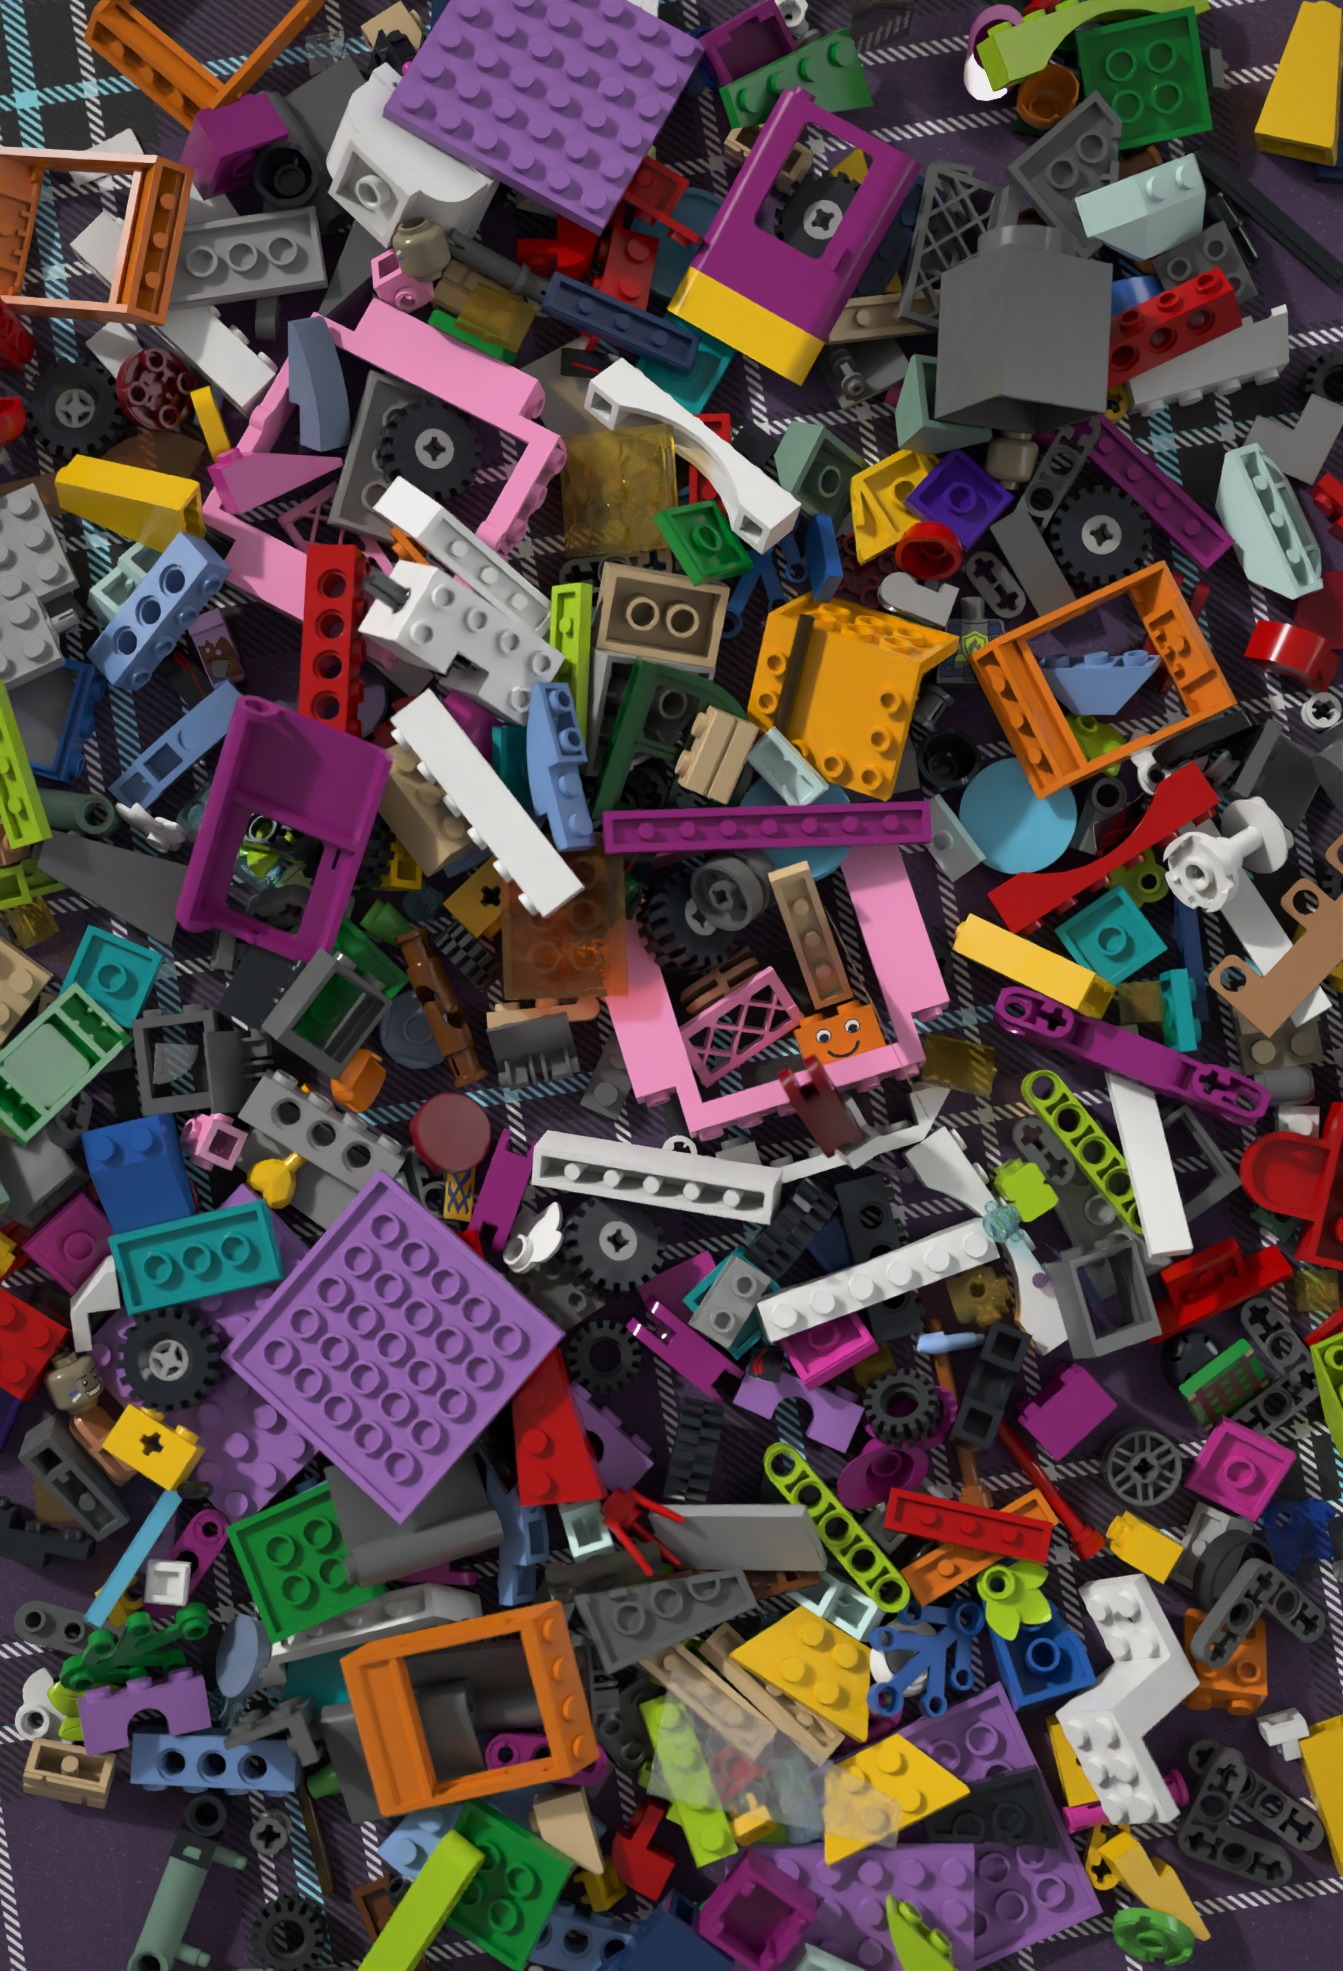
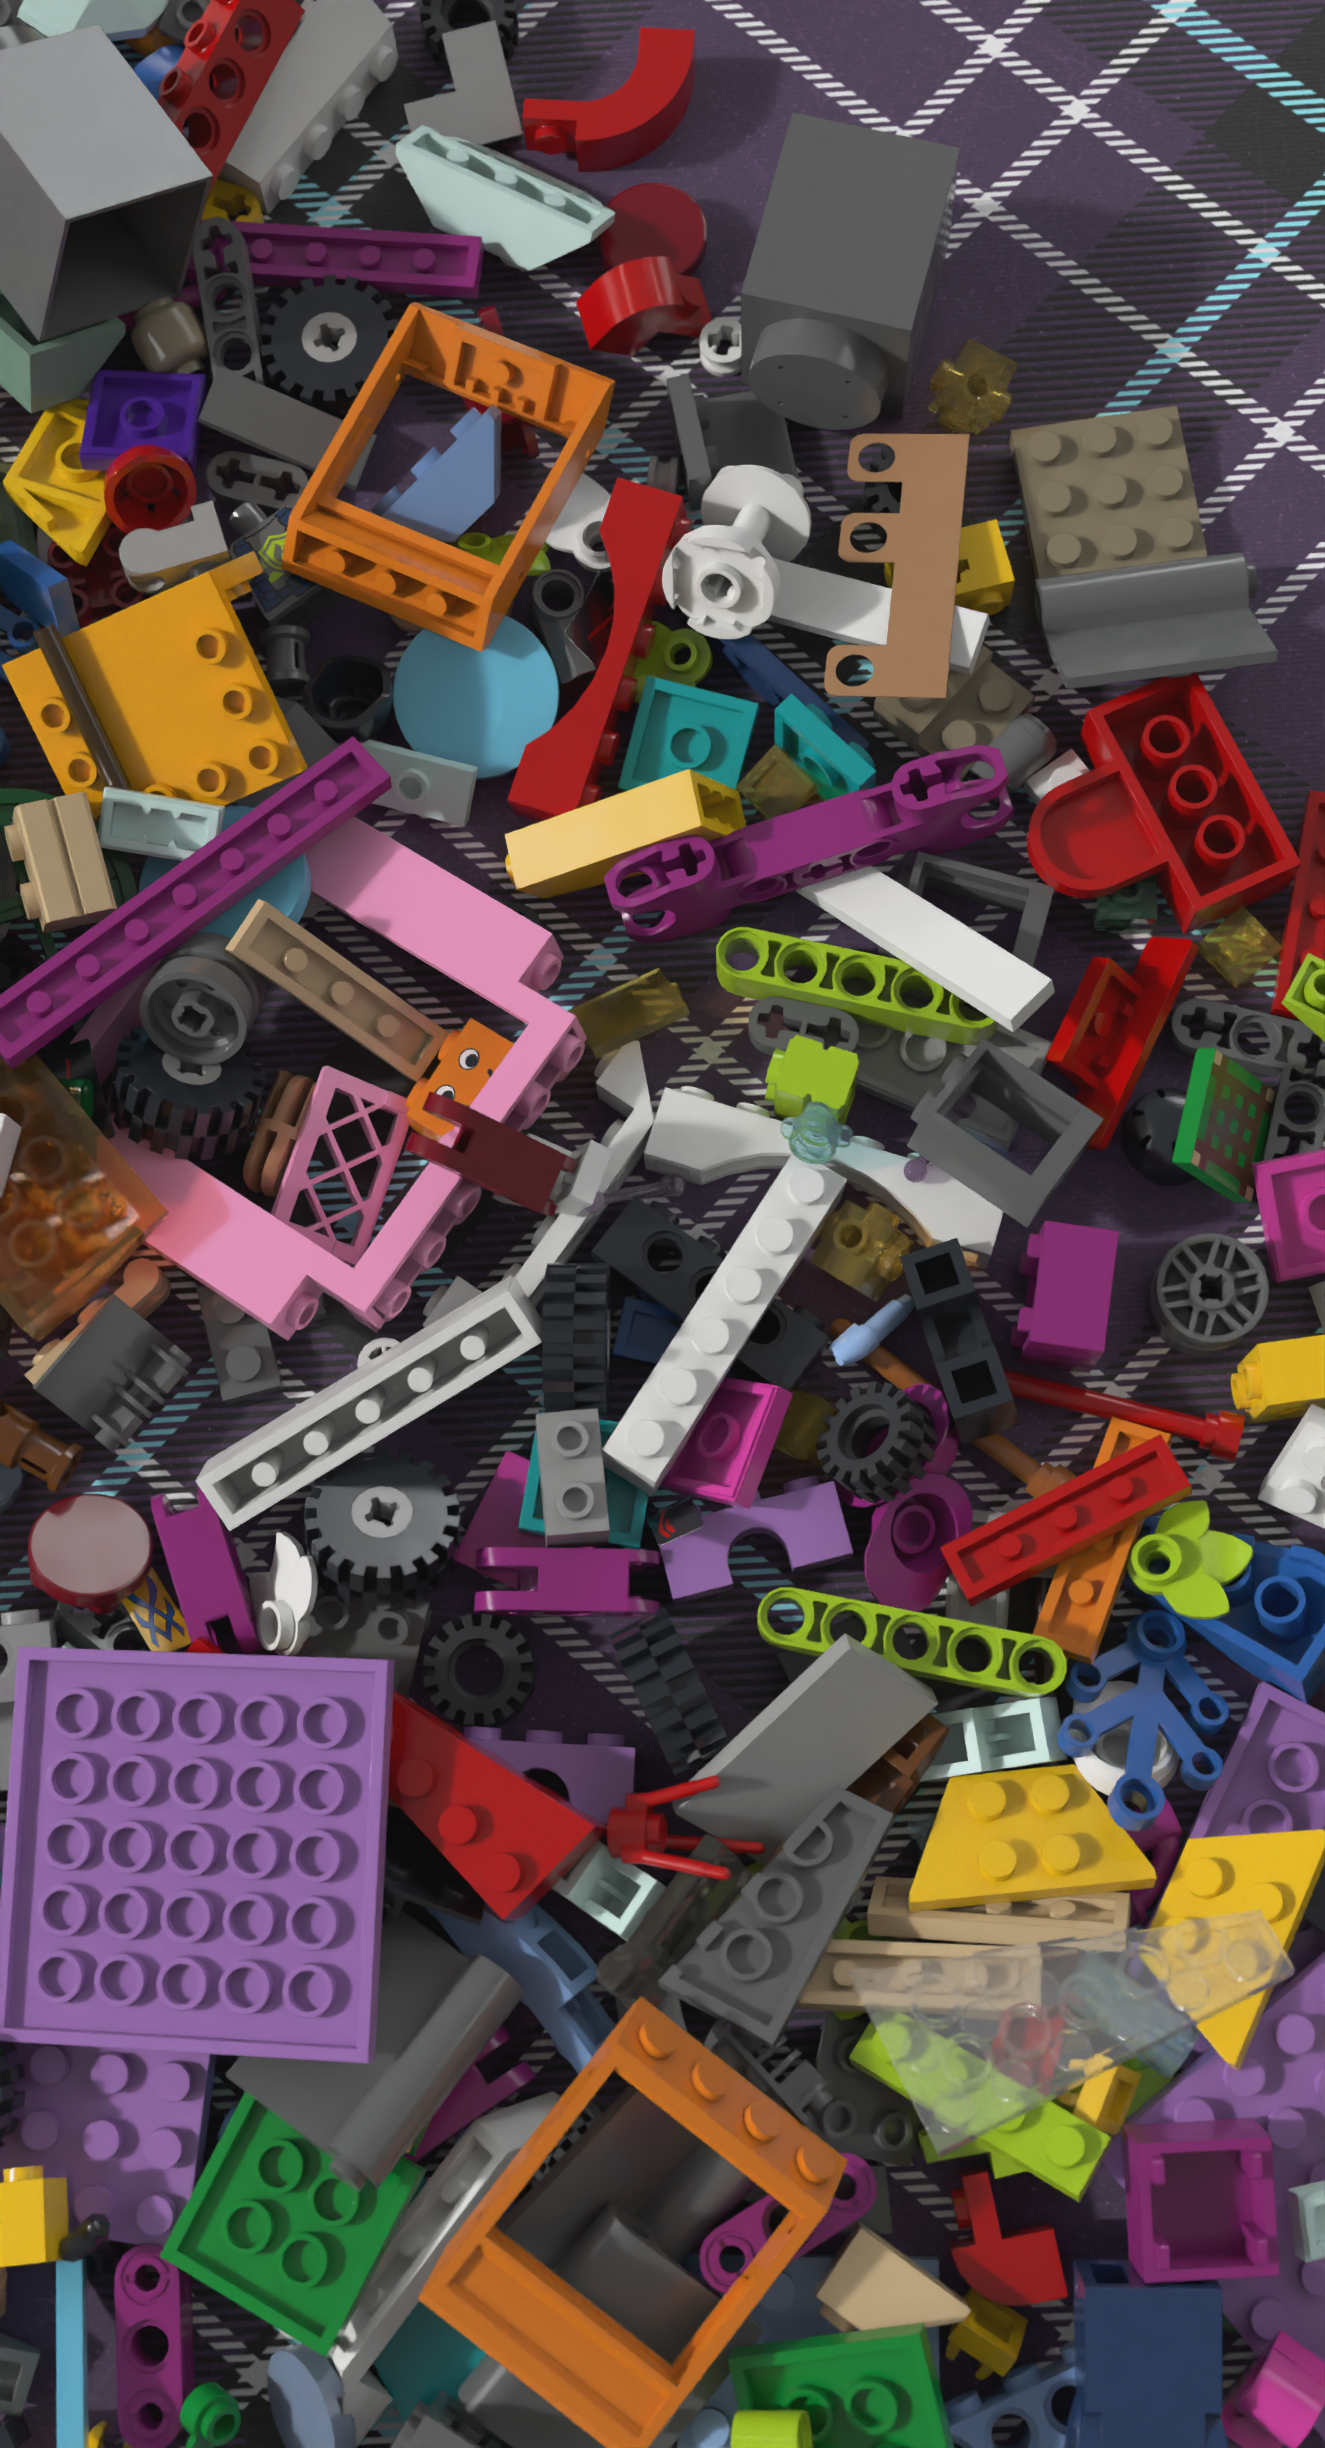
camera: 30 degrees left, 10 degrees down
(167, 1582) = (140, 2390): white tile -> none
(876, 1012) = (478, 1006): medium nougat piece -> none
(1205, 740) = (622, 455): black beam -> none

